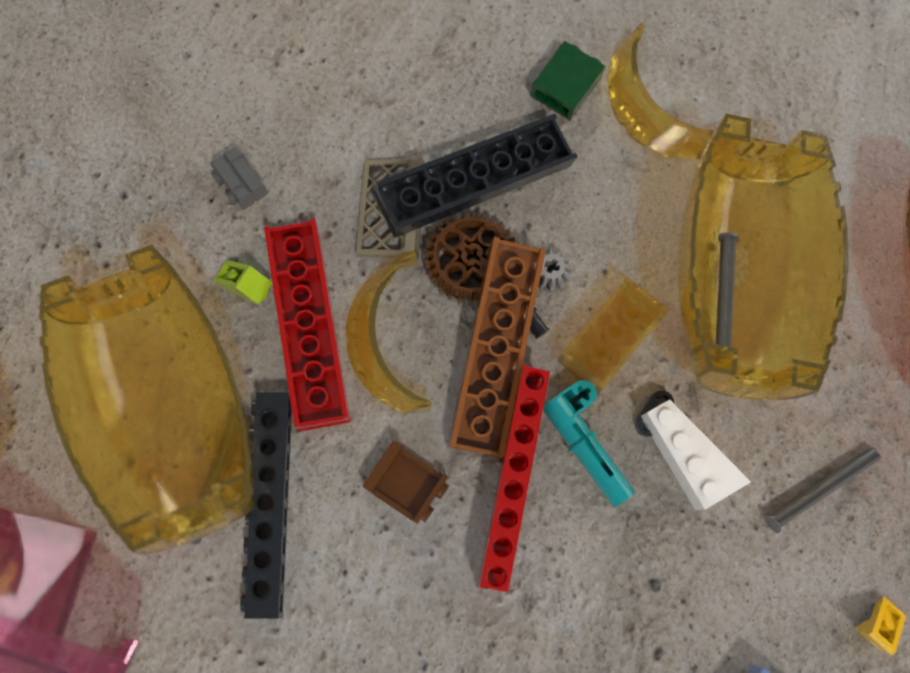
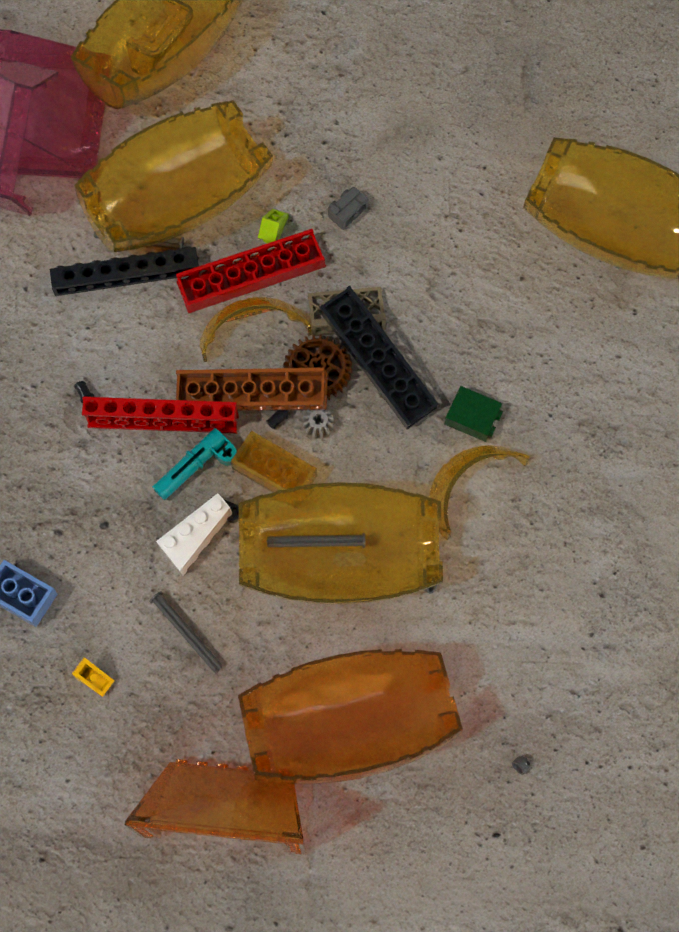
camera: 85 degrees right, 5 degrees down
(406, 483) = (150, 352): reddish brown panel -> none
(453, 589) = (83, 390): none -> black pin

